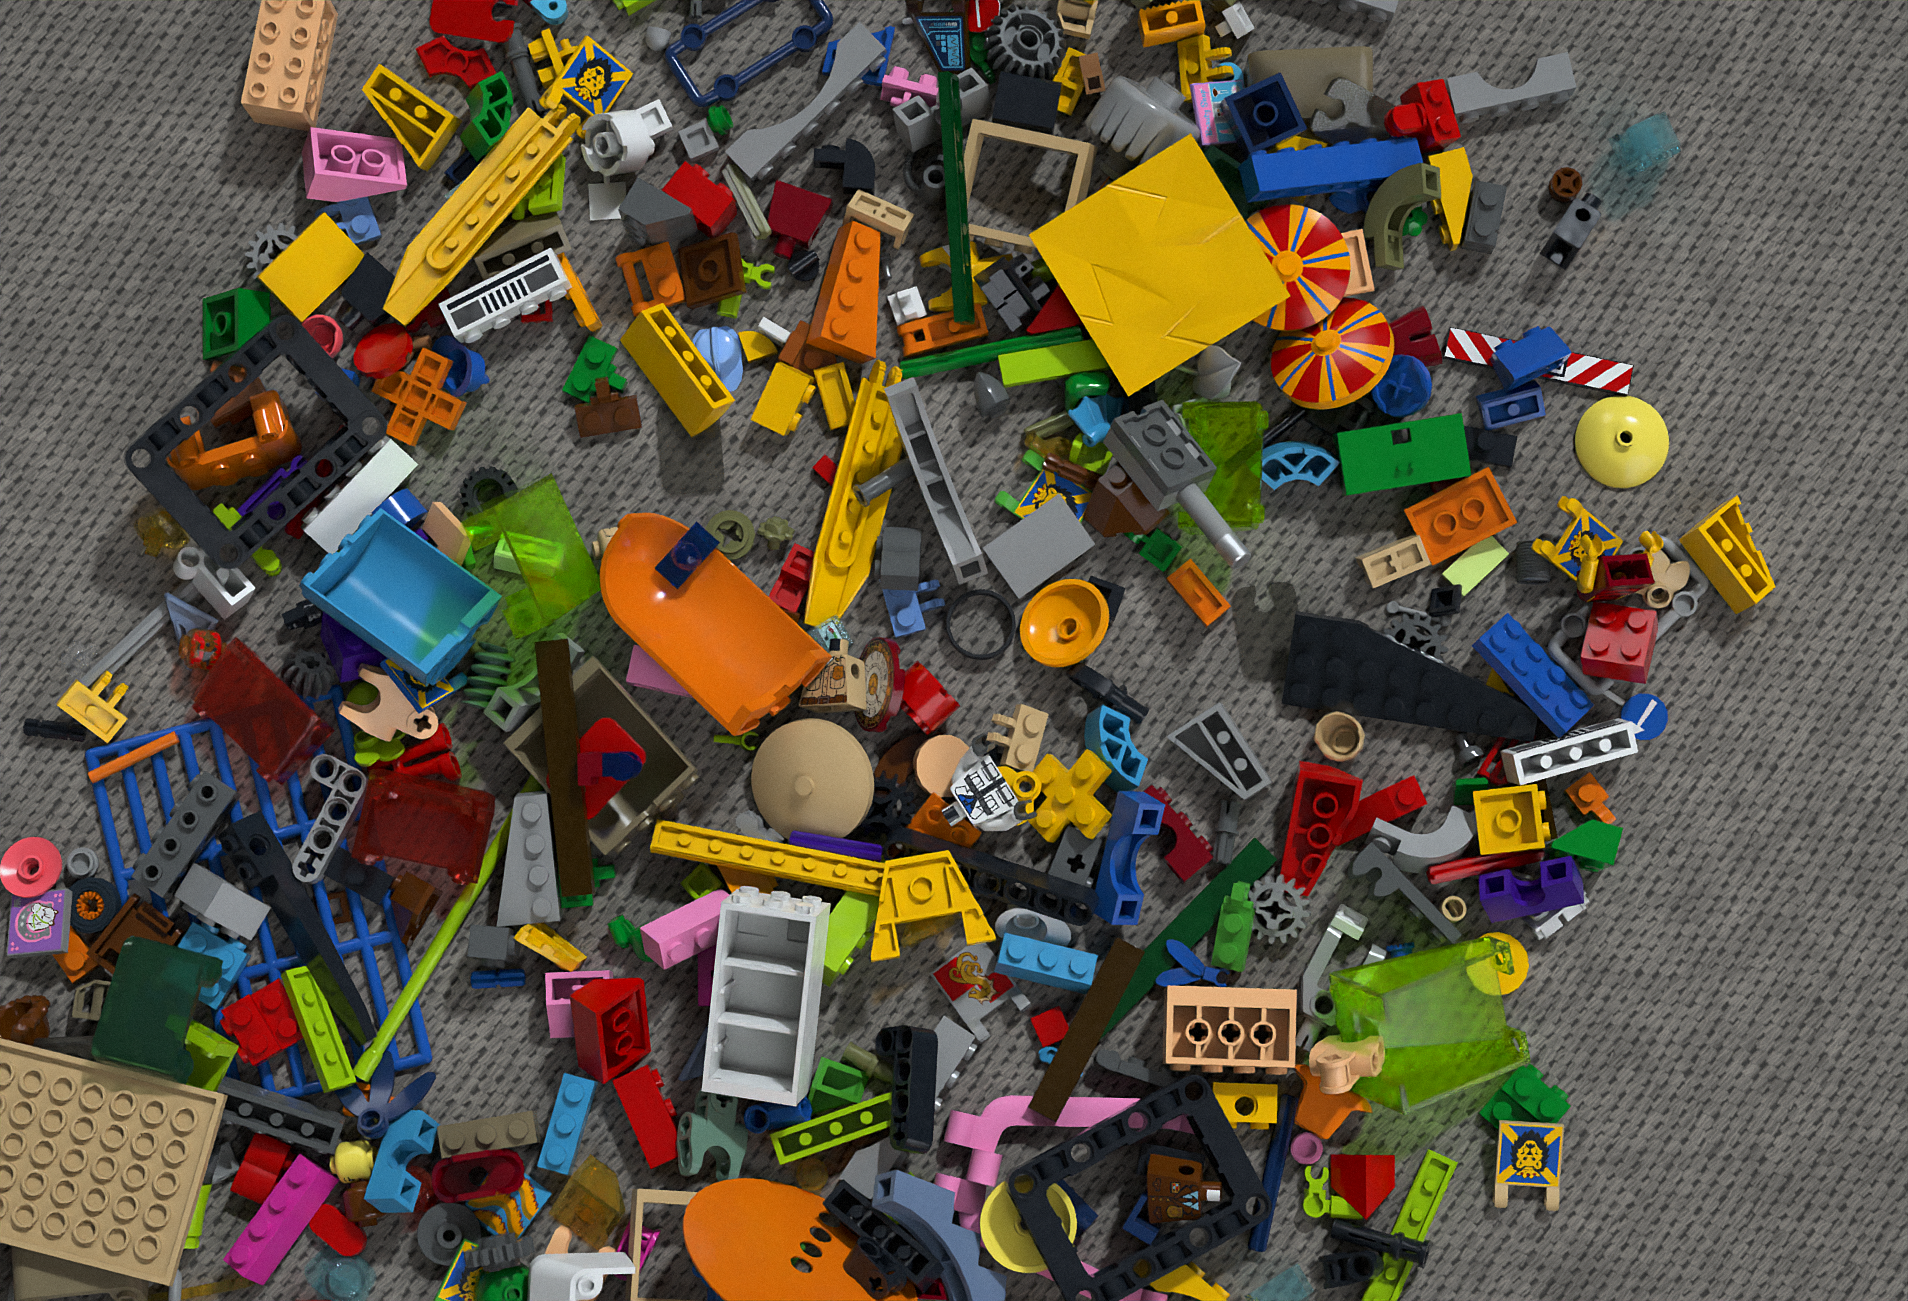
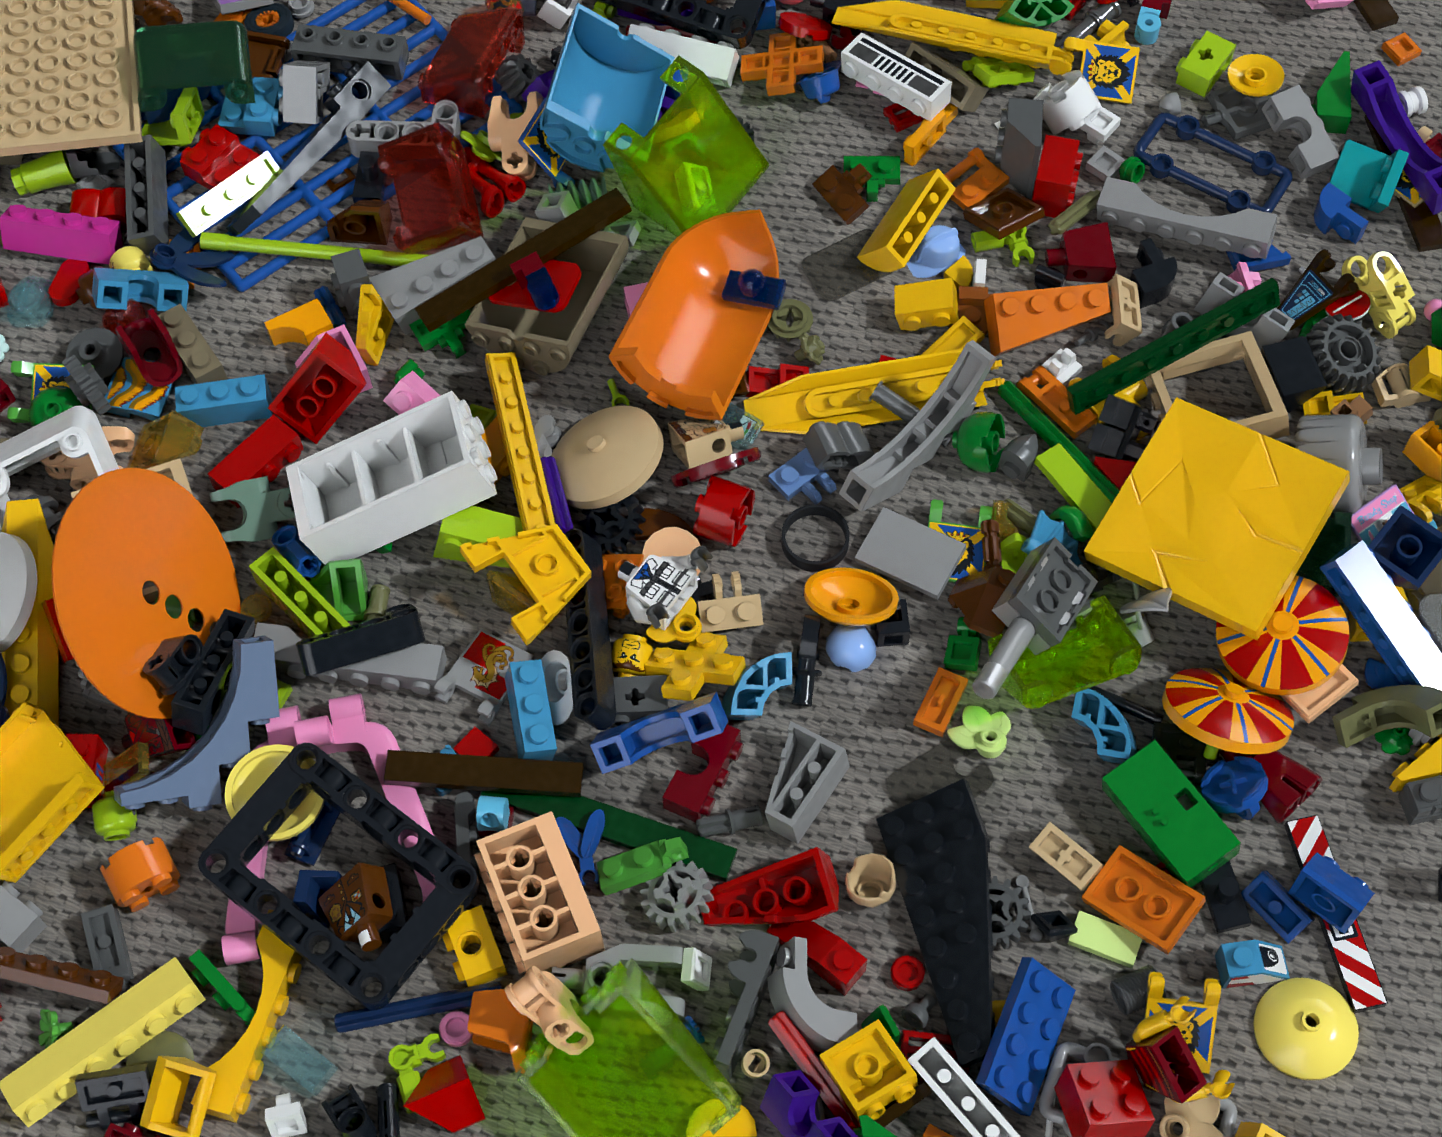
camera: 65 degrees right, 20 degrees down
(512, 1008) = (299, 324): none -> light orange arch
(957, 426) = (977, 439): none -> green cylinder
(1028, 848) = (630, 655): none -> yellow head
(1112, 649) = (851, 647): none -> light blue hair
(1132, 1037) = (493, 815): none -> medium azure leg
(1241, 580) = (980, 728): none -> yellowish green plate
(1429, 744) = (907, 973): none -> red tile
(1553, 456) = (1250, 963): none -> dark azure slope

